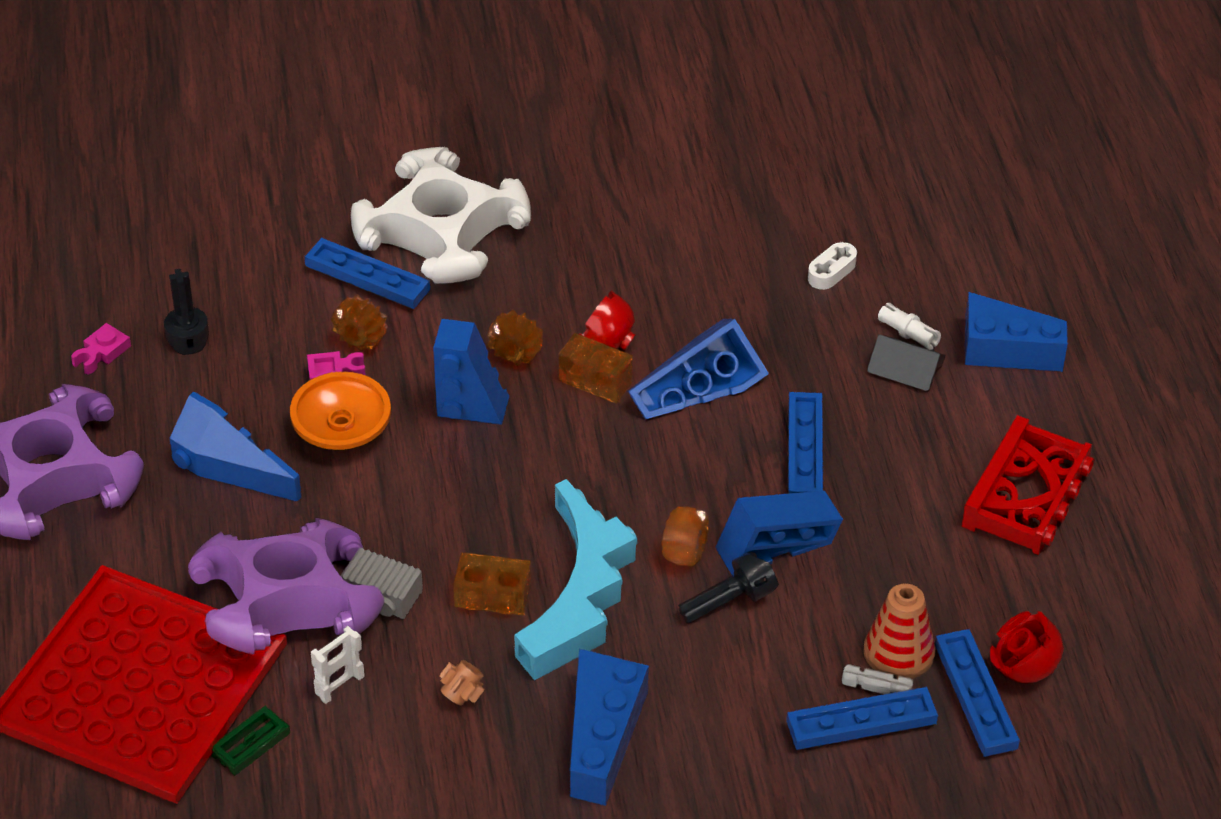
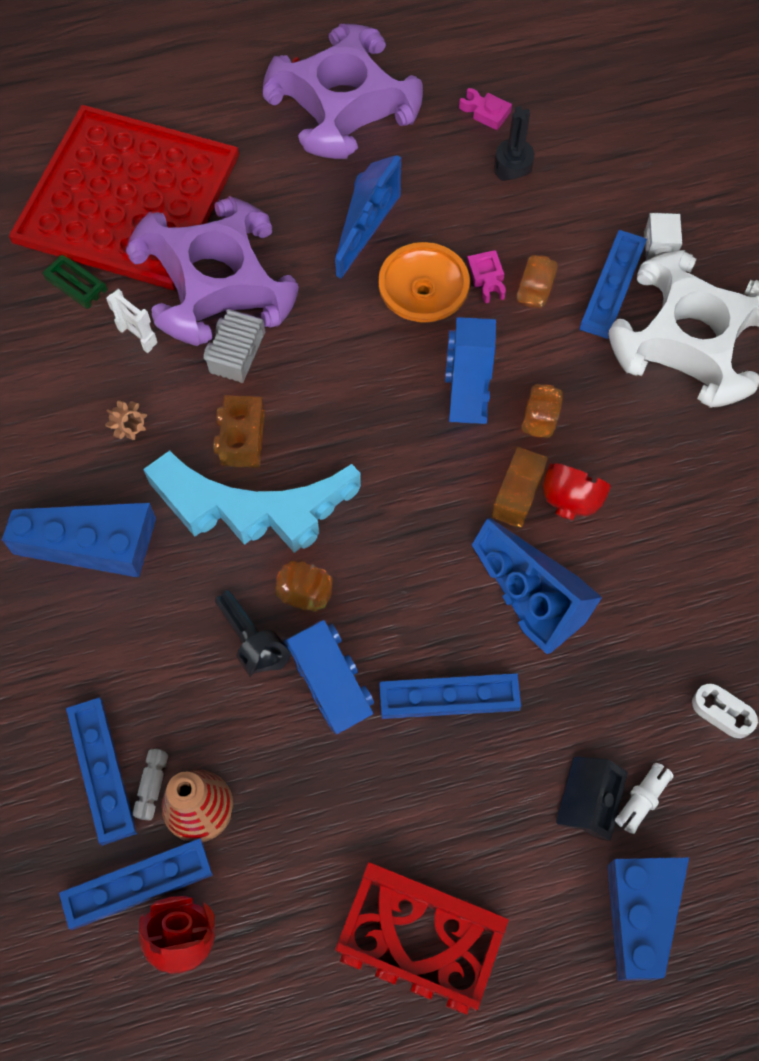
camera: 85 degrees right, 20 degrees up
(319, 223) = (662, 234): none -> white brick

